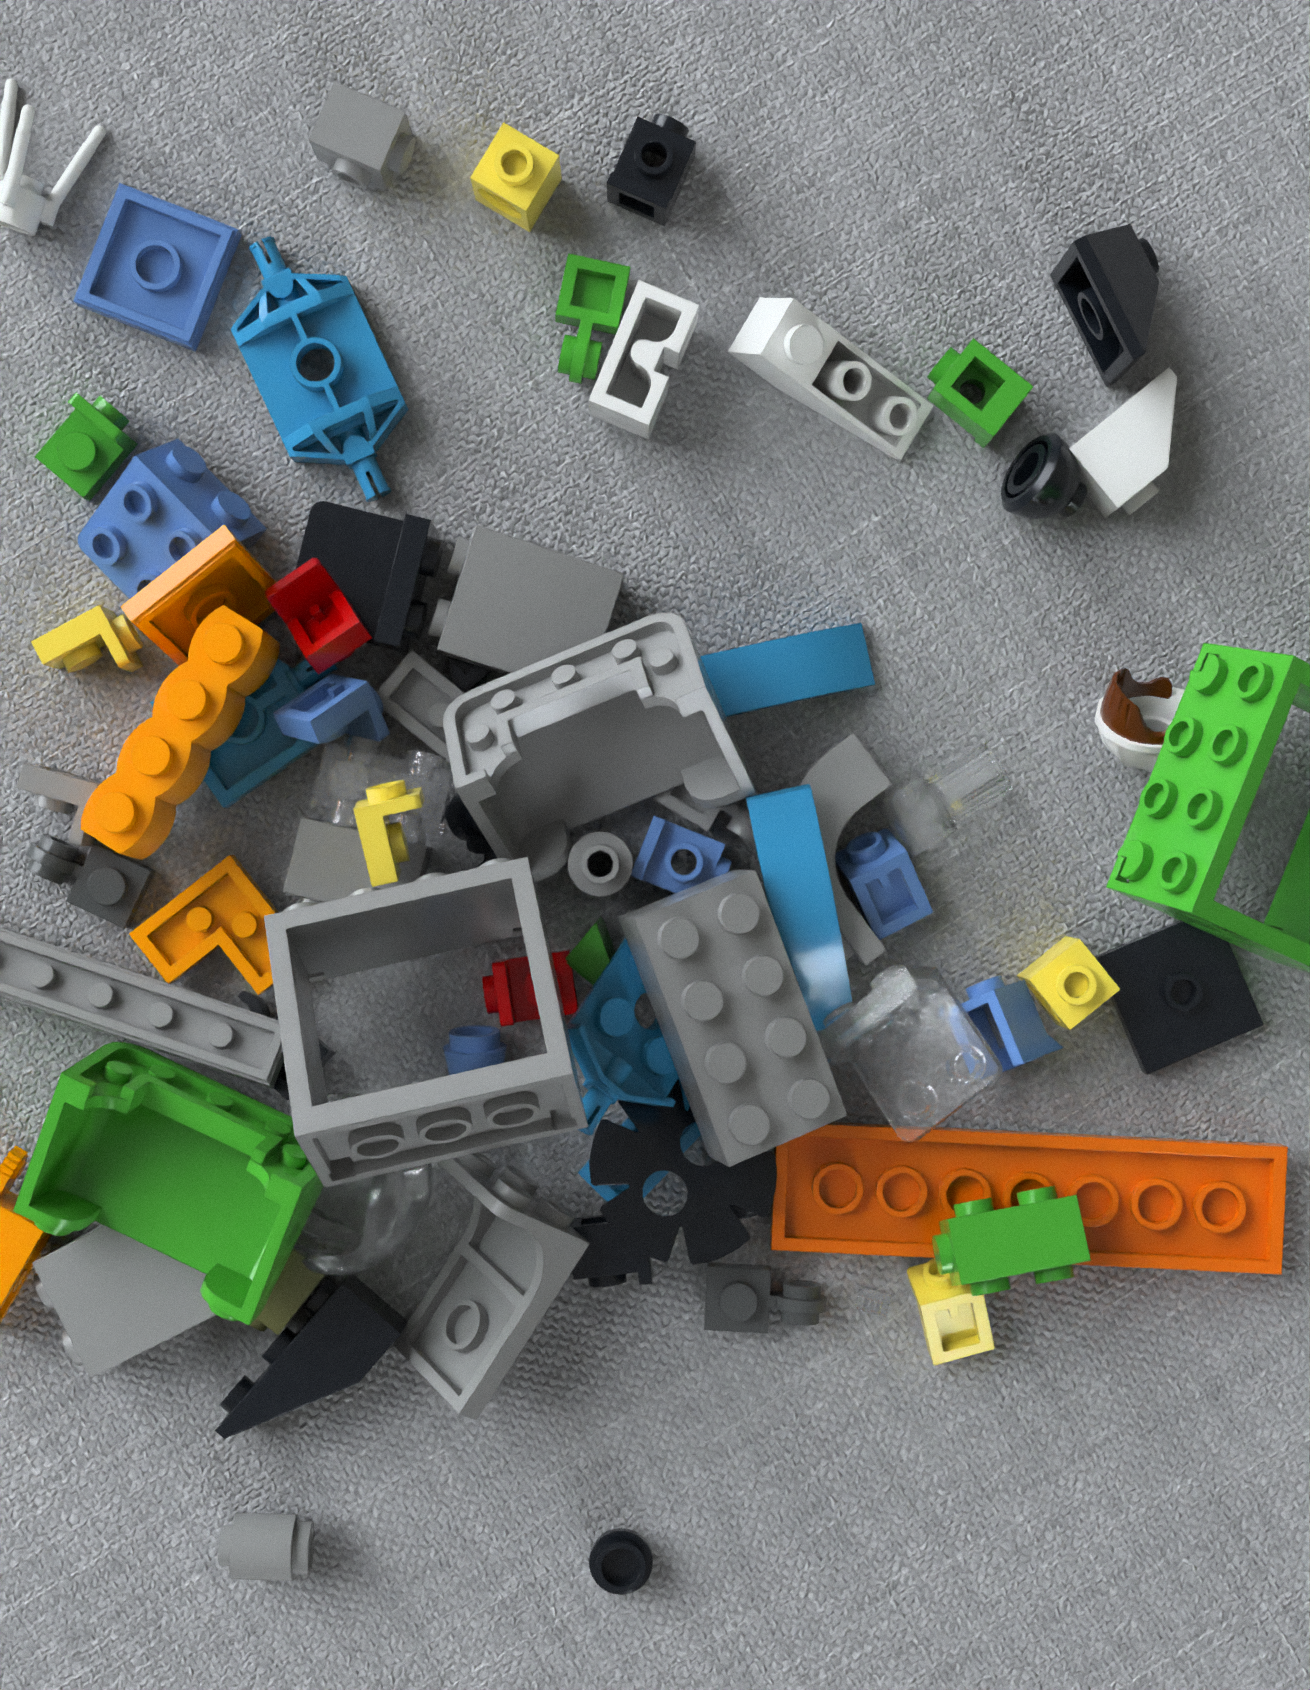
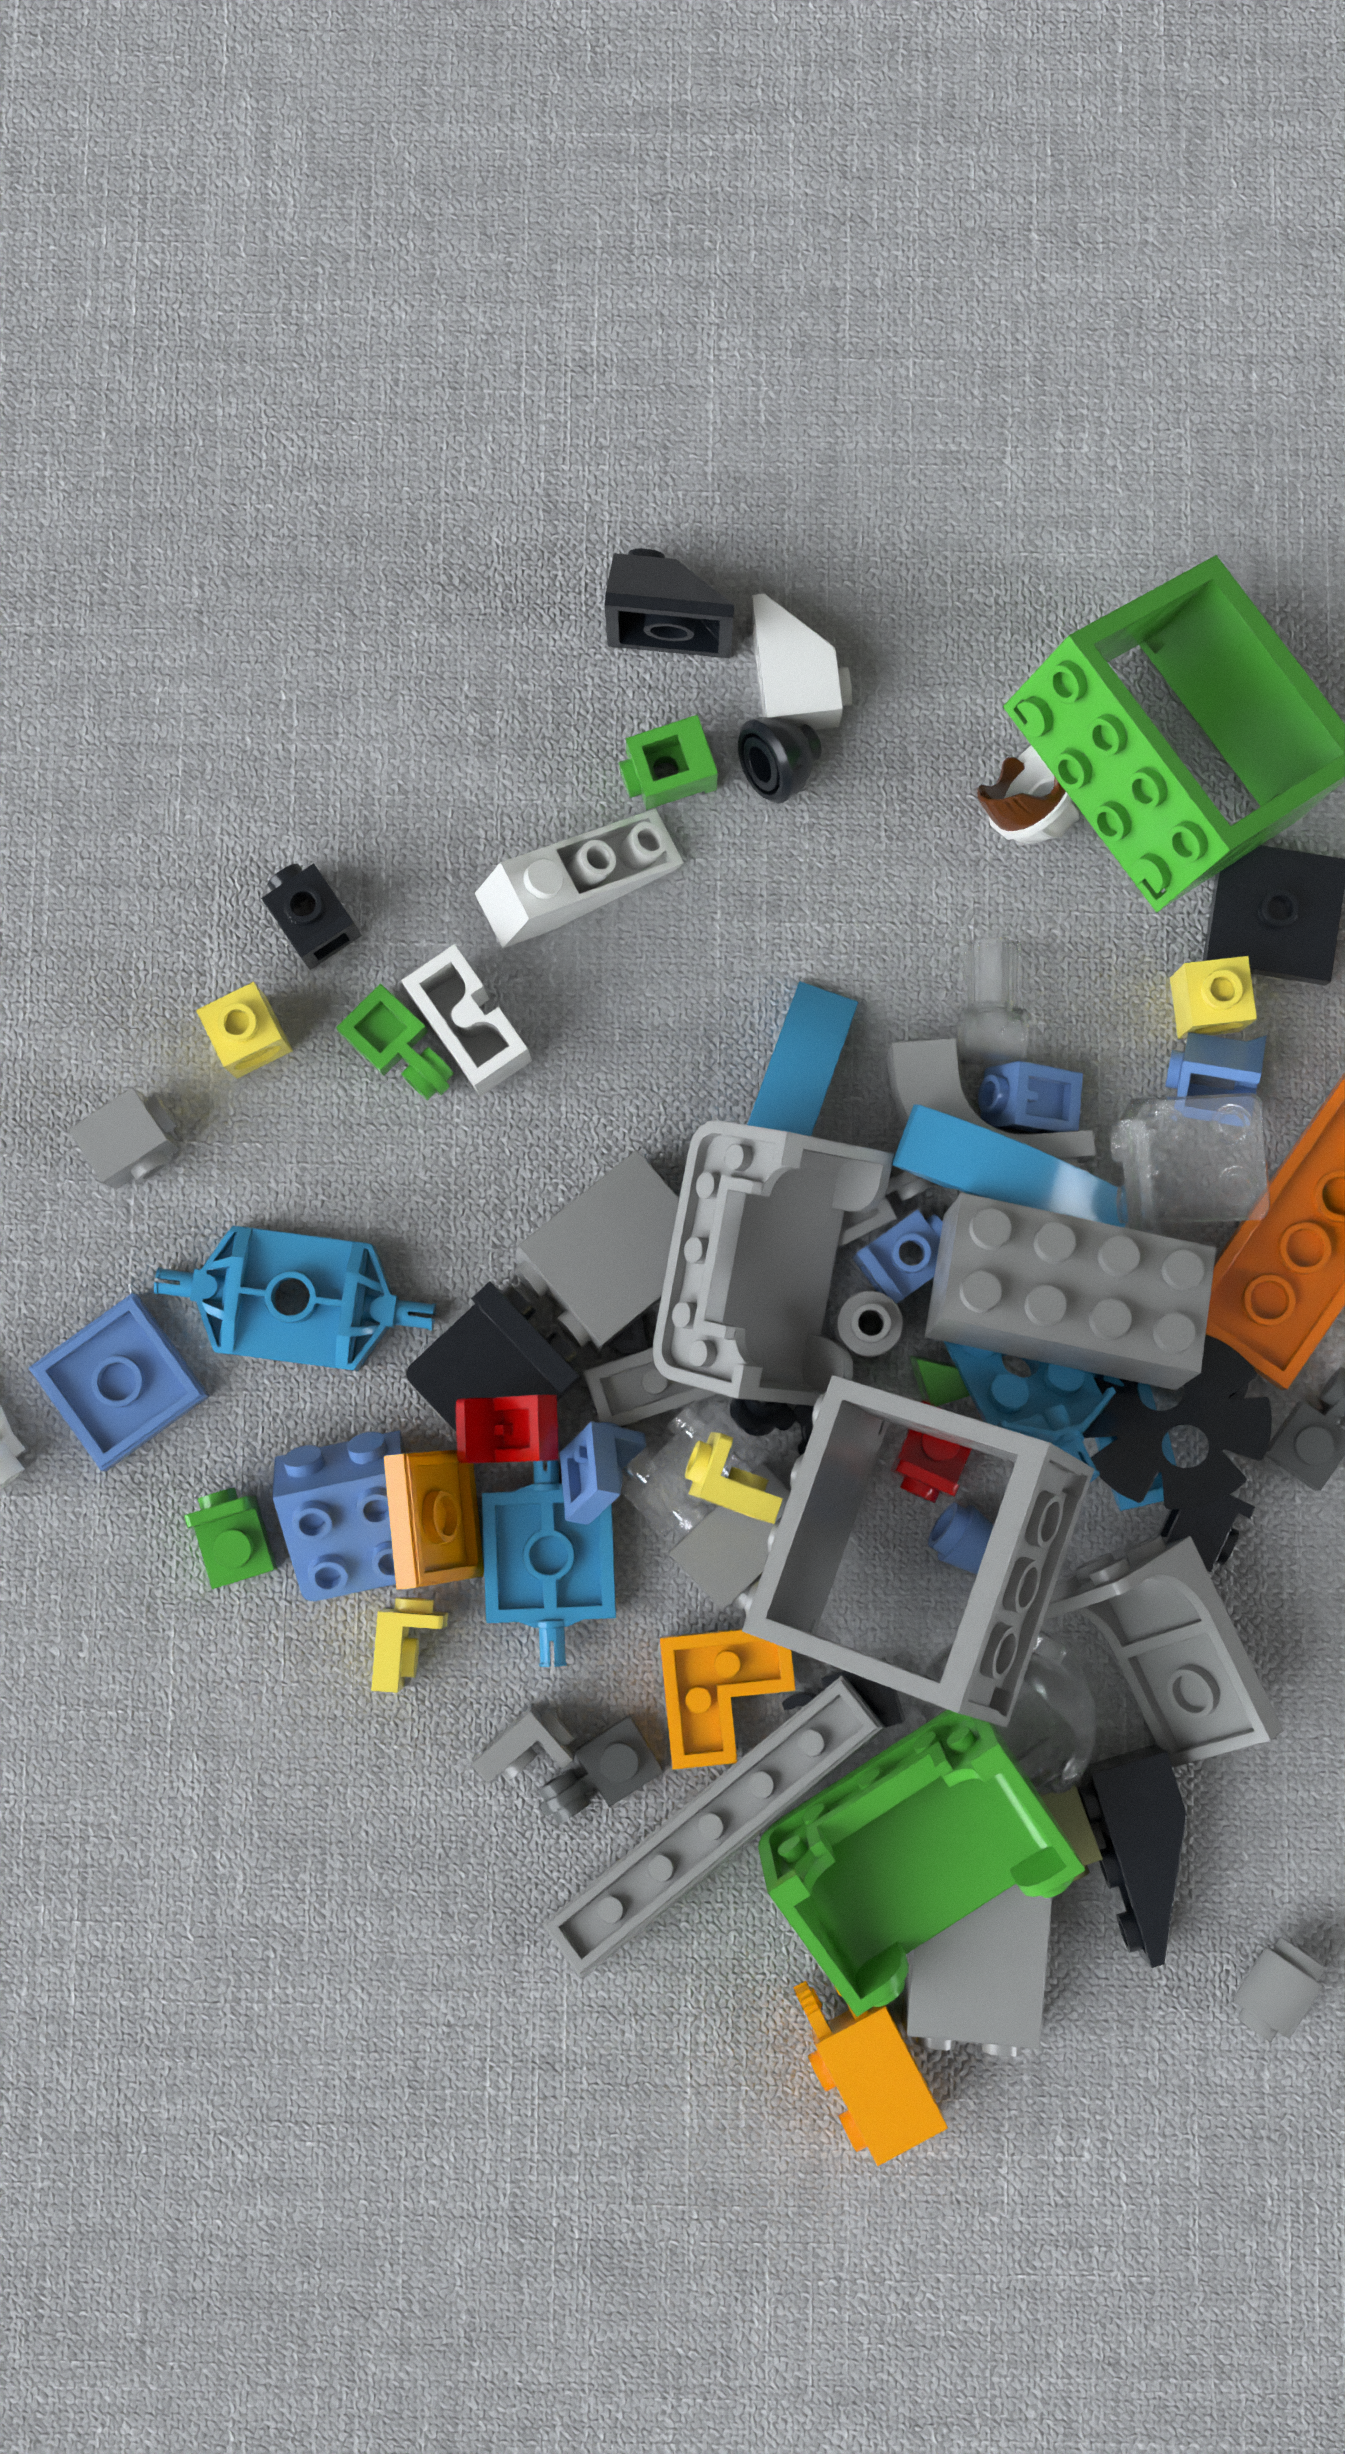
camera: 55 degrees left, 5 degrees down
(173, 748) = (542, 1626): light orange brick -> none

